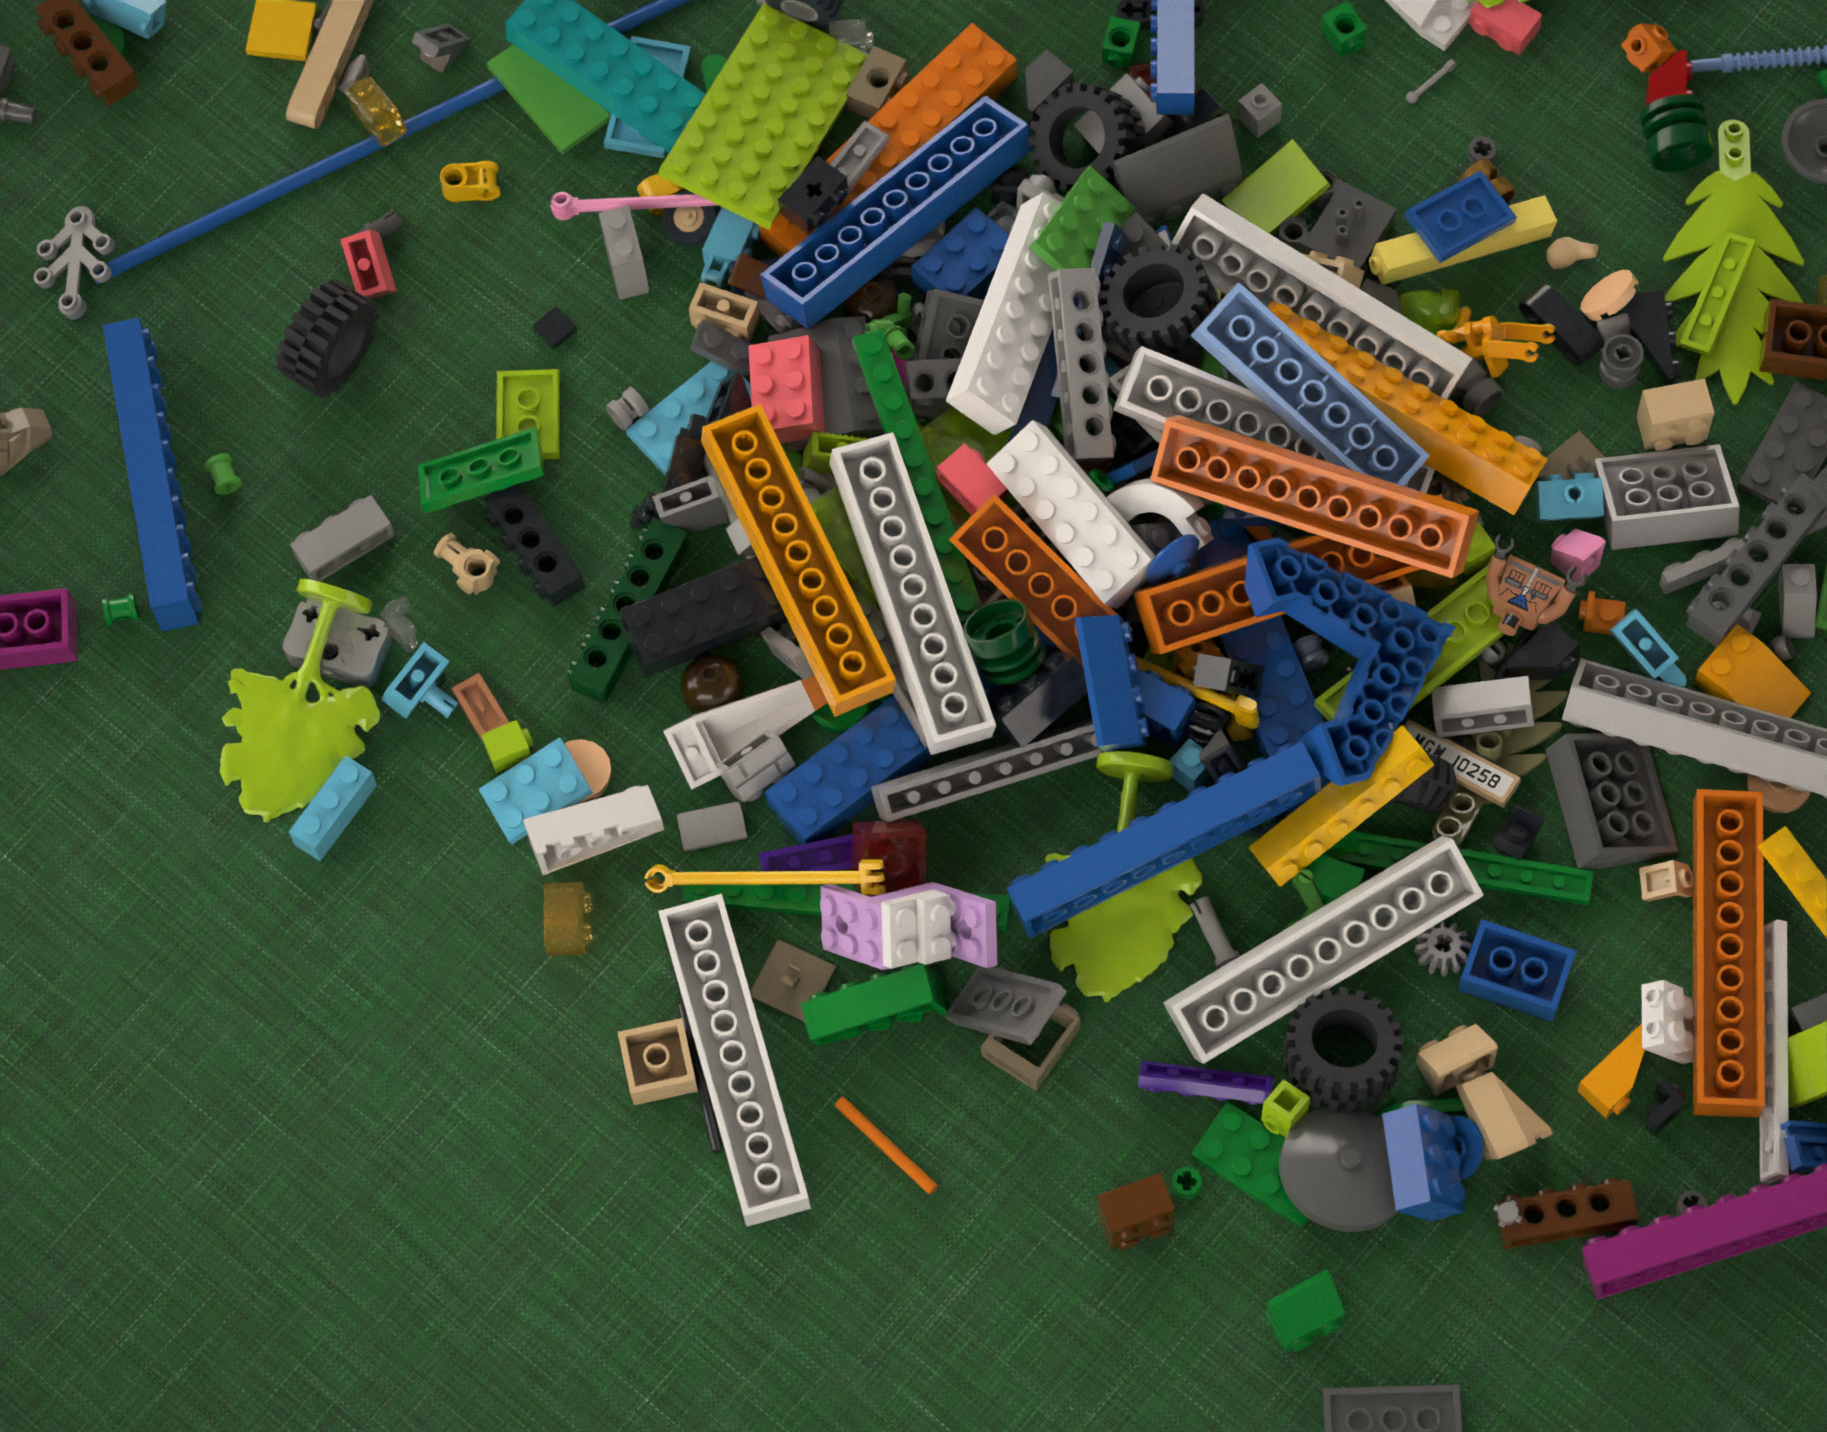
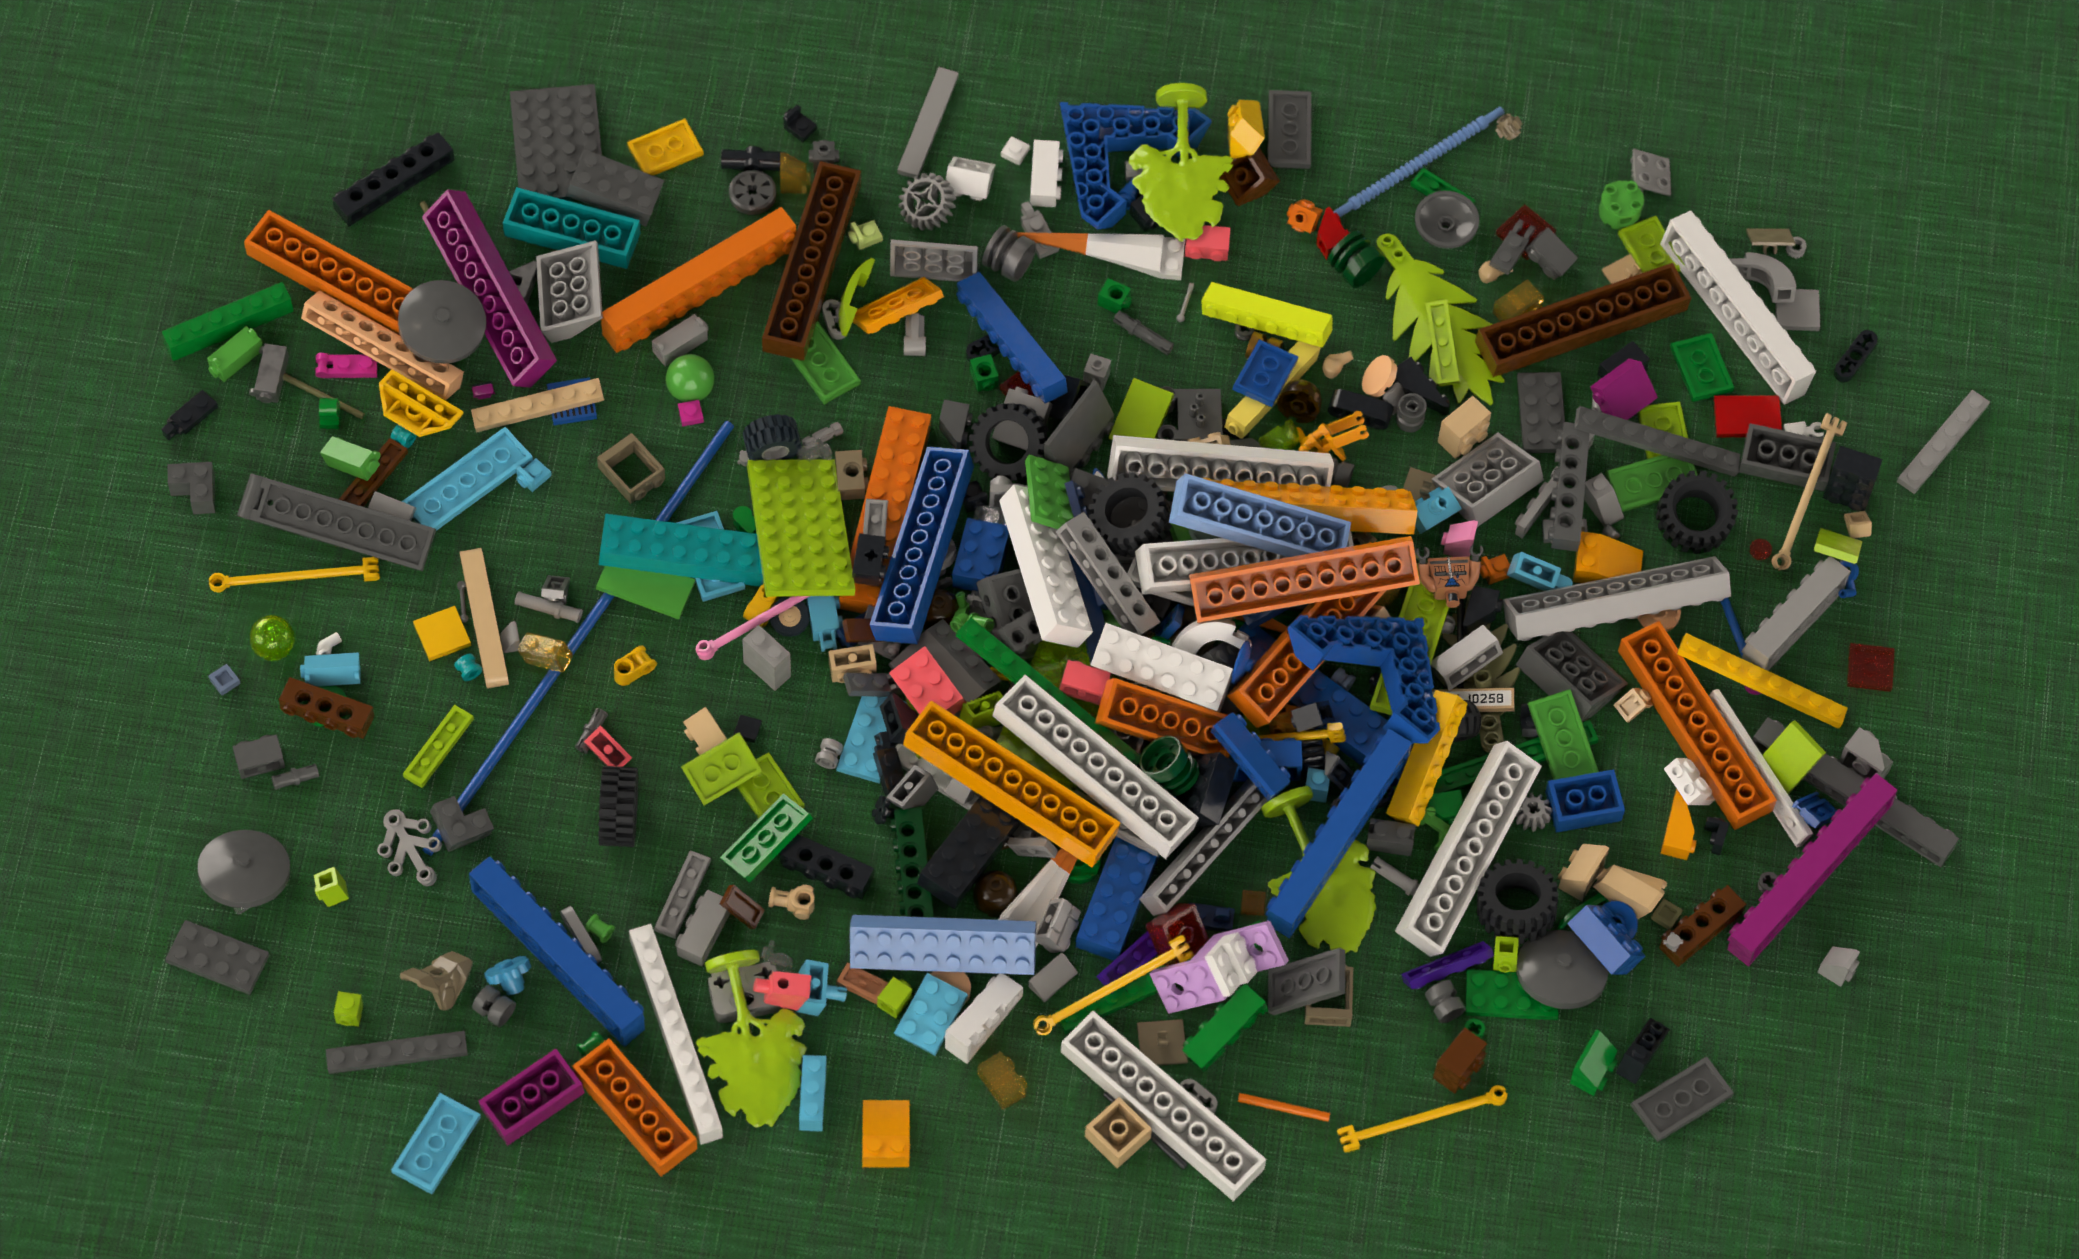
camera: 40 degrees left, 5 degrees down
(41, 499) = (492, 1004): none -> dark grey wheel
(81, 471) = (509, 974): none -> dark azure plant
(116, 710) = (635, 1107): none -> orange brick
(139, 270) = (459, 829): none -> dark grey brick
(186, 159) = (438, 746): none -> lime plate
(195, 471) = (579, 932): none -> light grey beam
(223, 648) = (675, 1034): none -> white brick
(281, 83) = (468, 667): none -> teal wheel
(348, 485) = (682, 894): none -> light grey tile
(377, 672) = (784, 989): none -> coral torso
(387, 905) = (885, 1133): none -> light orange slope
(399, 537) = (742, 907): none -> reddish brown tile
(429, 69) = (558, 609): none -> light grey pin
(485, 358) = (721, 768): none -> lime tile
(498, 310) = (704, 730): none -> tan brick
(597, 713) = (942, 944): none -> medium blue brick
(795, 1071) = (1200, 1093): none -> light grey beam
(881, 20) = (824, 434): none -> light grey axle
(948, 1232) = (1355, 1137): none -> yellow hinge
(954, 859) = (1216, 917): none -> dark blue hinge
(1016, 865) = (1253, 902): none -> clear orange tile
(1170, 1131) = (1446, 1004): none -> dark grey wheel
(1240, 881) = (1390, 837): none -> dark grey brick
(1346, 82) = (1135, 327): none -> dark grey pin
(1382, 1330) = (1642, 1051): none -> black slope
(1489, 274) = (1300, 400): none -> dark brown cylinder
(1515, 146) = (1267, 314): none -> neon yellow brick
(1530, 1174) = (1666, 914): none -> olive plate
(1541, 873) = (1562, 735): none -> bright green tile
(1710, 1365) = (1839, 965): none -> light grey slope

